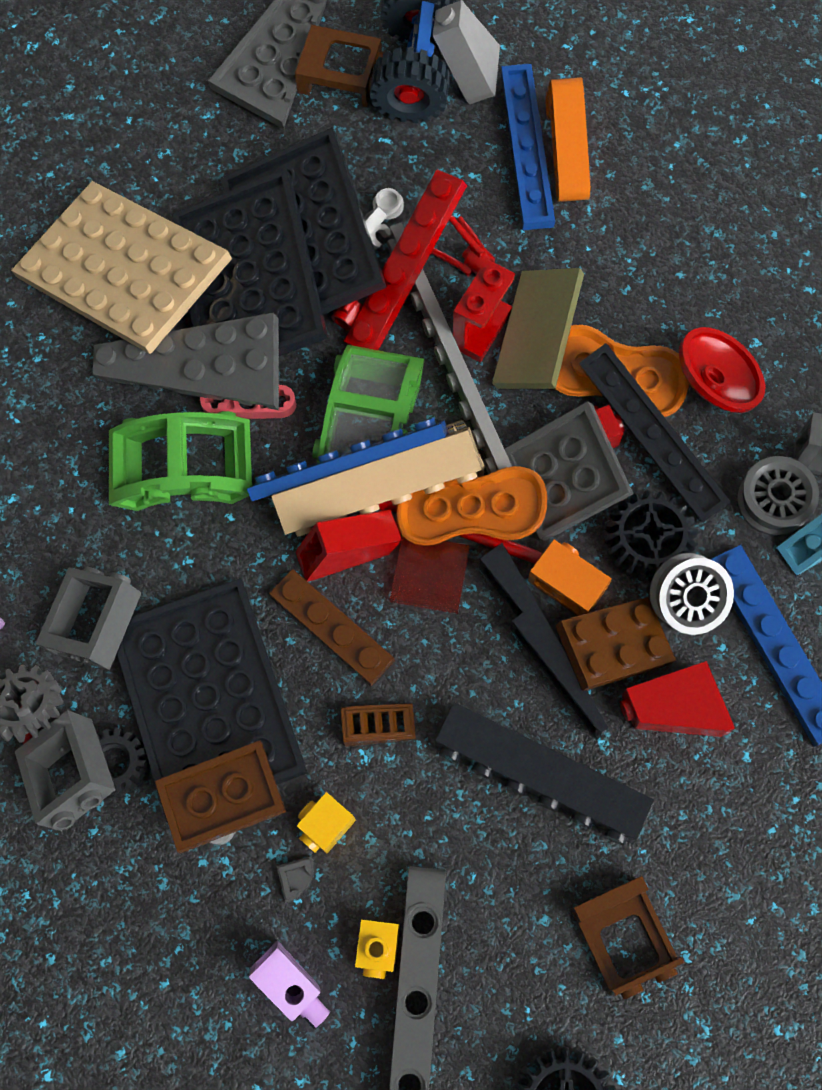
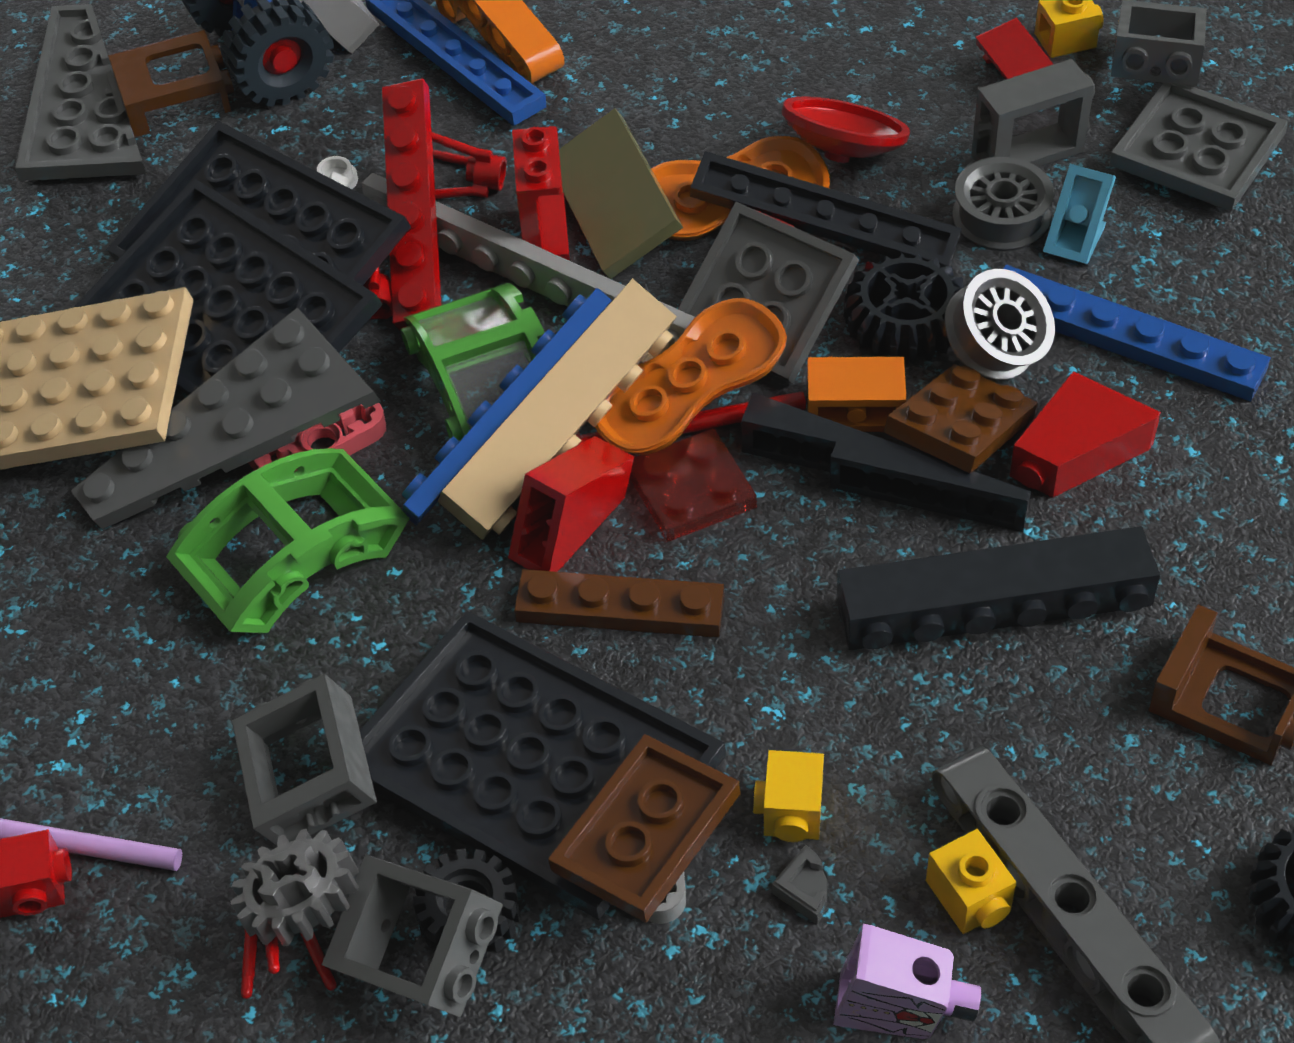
camera: 35 degrees left, 20 degrees down
(377, 711) = (746, 693): reddish brown slope -> none

